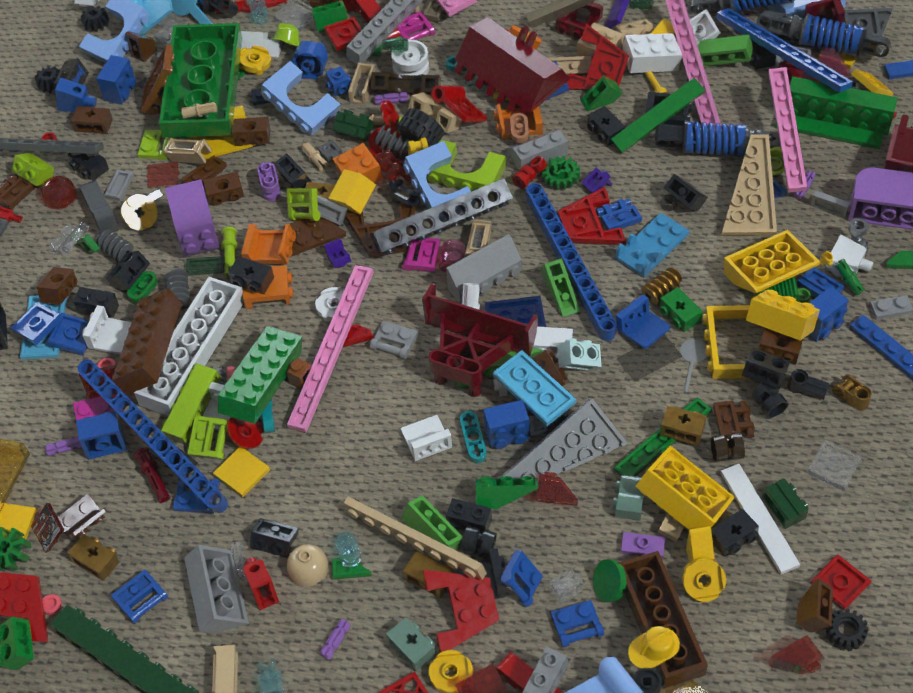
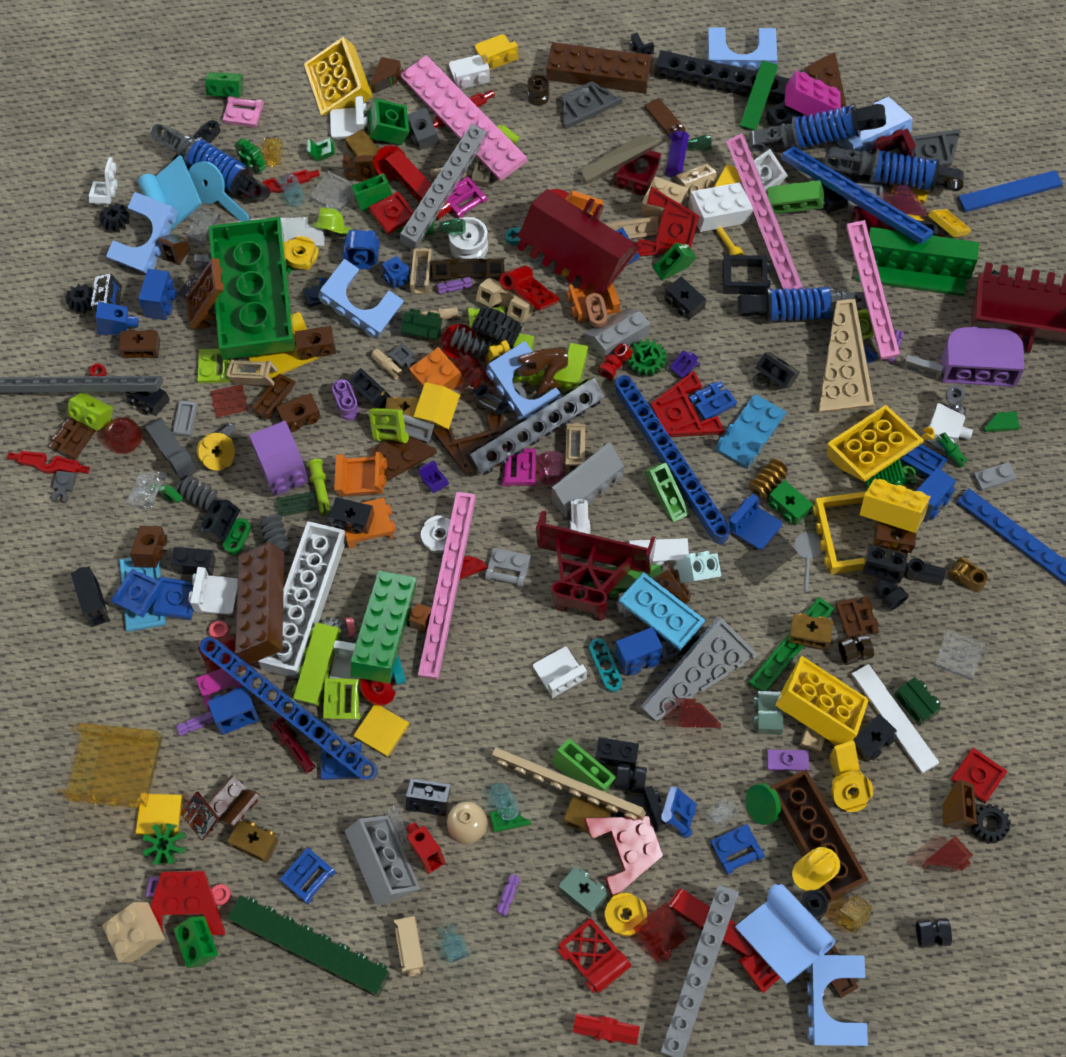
camera: 10 degrees left, 10 degrees up
(199, 110) = (259, 329): tan axle -> none
(389, 114) = (458, 308): red plate -> none
(453, 158) = (553, 357): none -> reddish brown piece
(501, 491) = (642, 724): green slope -> none
(518, 309) = (627, 524): clear blue plate -> none
(658, 115) = (738, 283): green tile -> none

